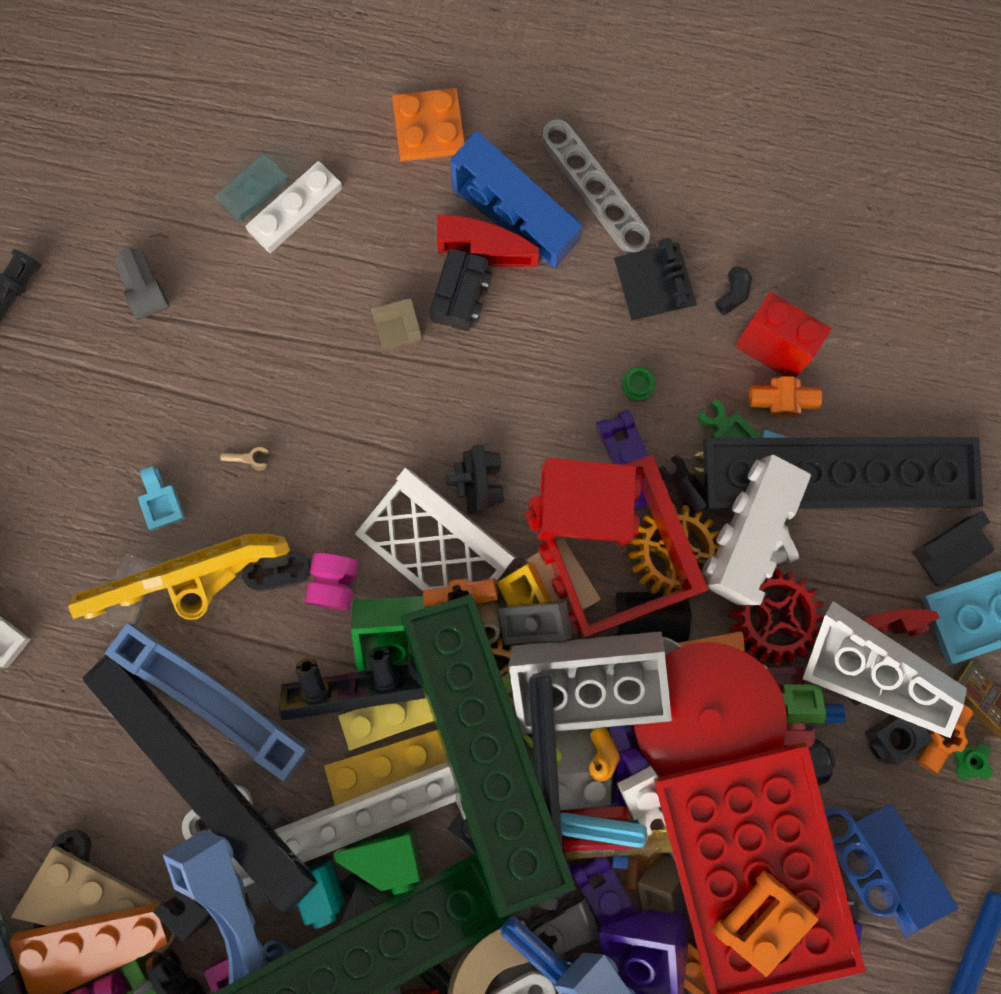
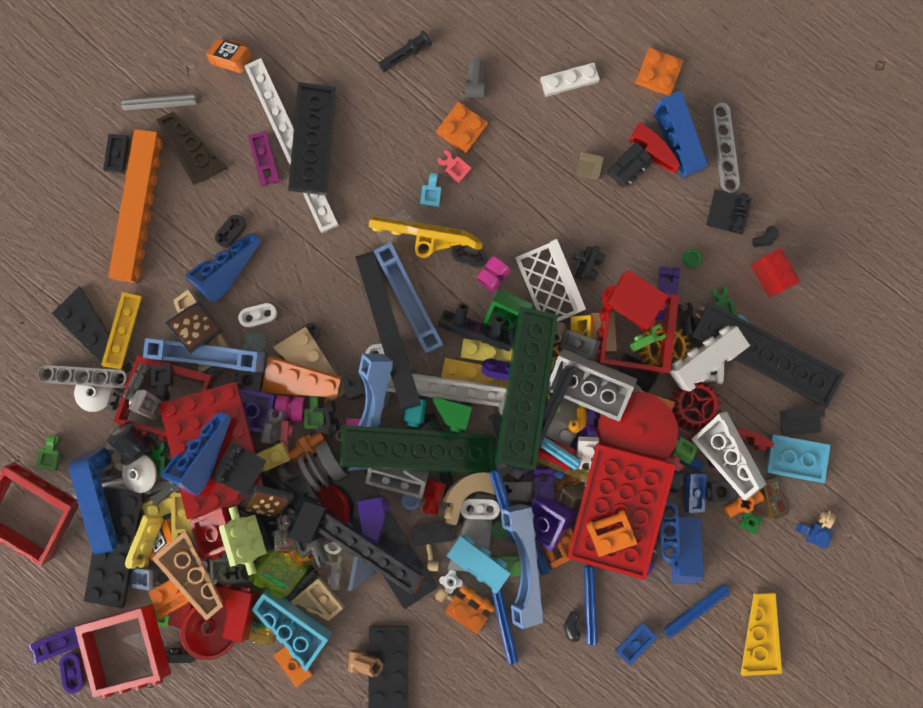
camera: 30 degrees right, 5 degrees up
(158, 370) = (462, 127): none -> orange plate
(180, 441) = (455, 168): none -> coral plate
(247, 458) = (483, 193): tan hand -> none
(251, 188) = (554, 59): clear light blue plate -> none
(416, 740) = (495, 369): none -> dark purple plate
(481, 590) = (563, 317): orange axle -> none
(636, 562) = (642, 340): none -> bright green plate
(785, 397) = (760, 303): orange axle -> none
(858, 763) = (695, 492): none -> blue plate

